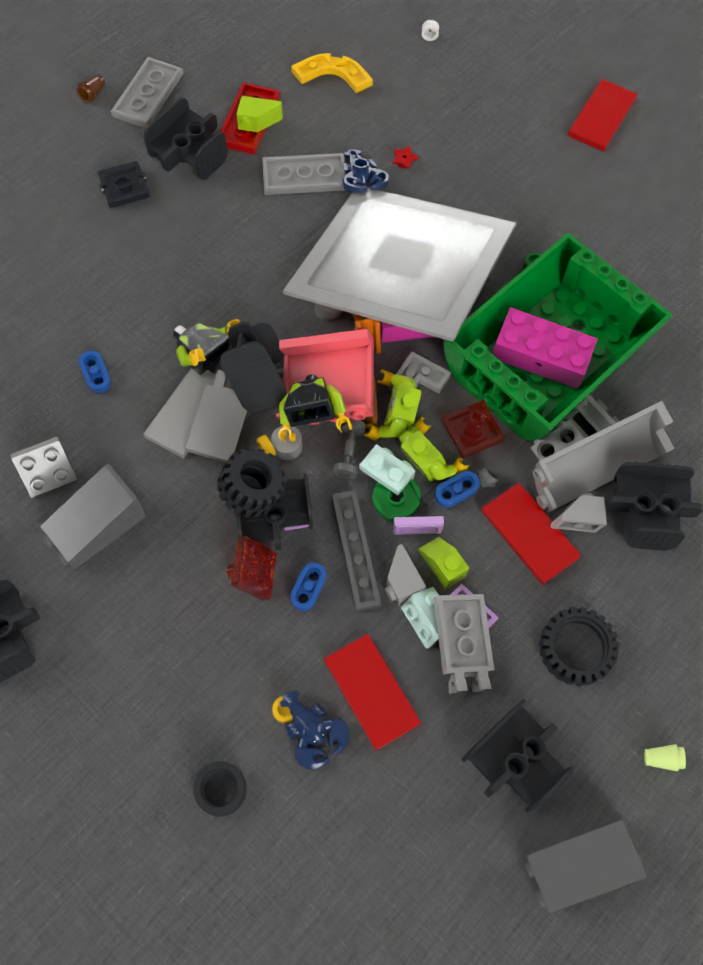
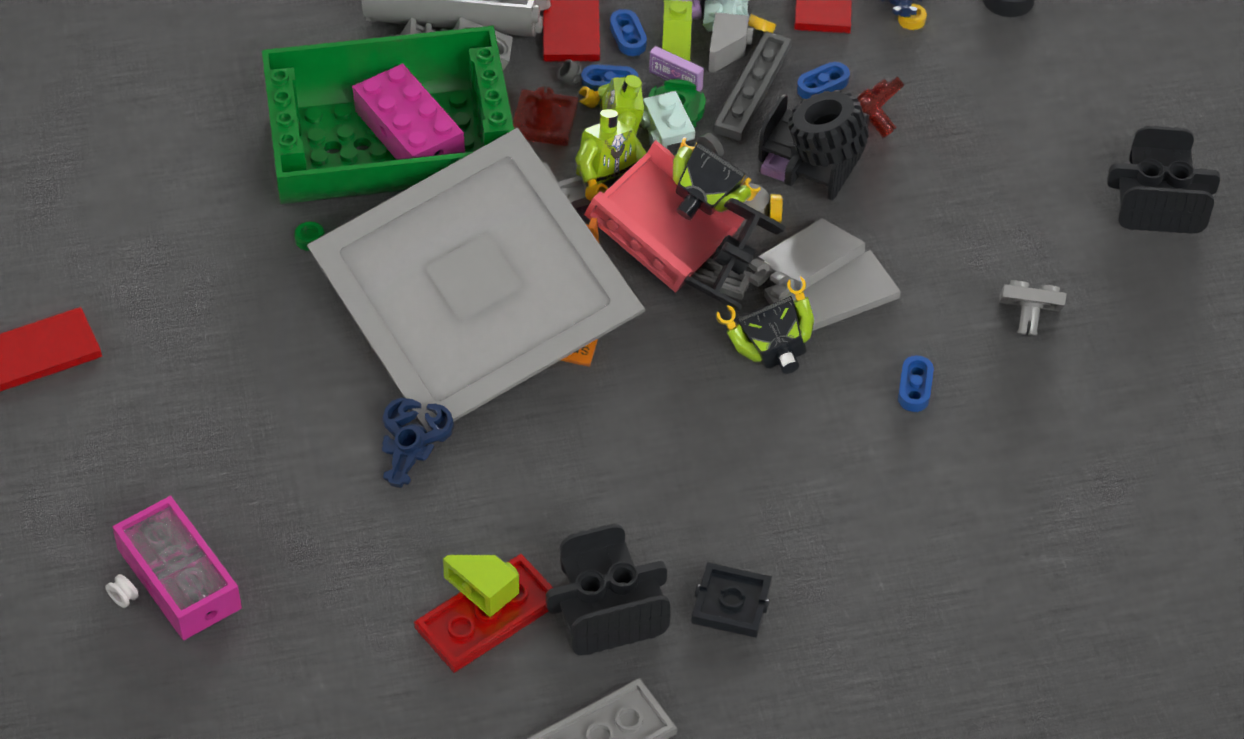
camera: 145 degrees left, 15 degrees down
(92, 518) = (1003, 231): slope -> none
(303, 173) = (480, 490): light grey tile -> none
(325, 64) = (309, 620): yellow plate -> none
(390, 613) = (761, 24): none -> yellow tile
(404, 162) = (339, 442): red plate -> none
(412, 44) = (177, 567): none -> brick
(480, 540) = (628, 32): none -> blue plate

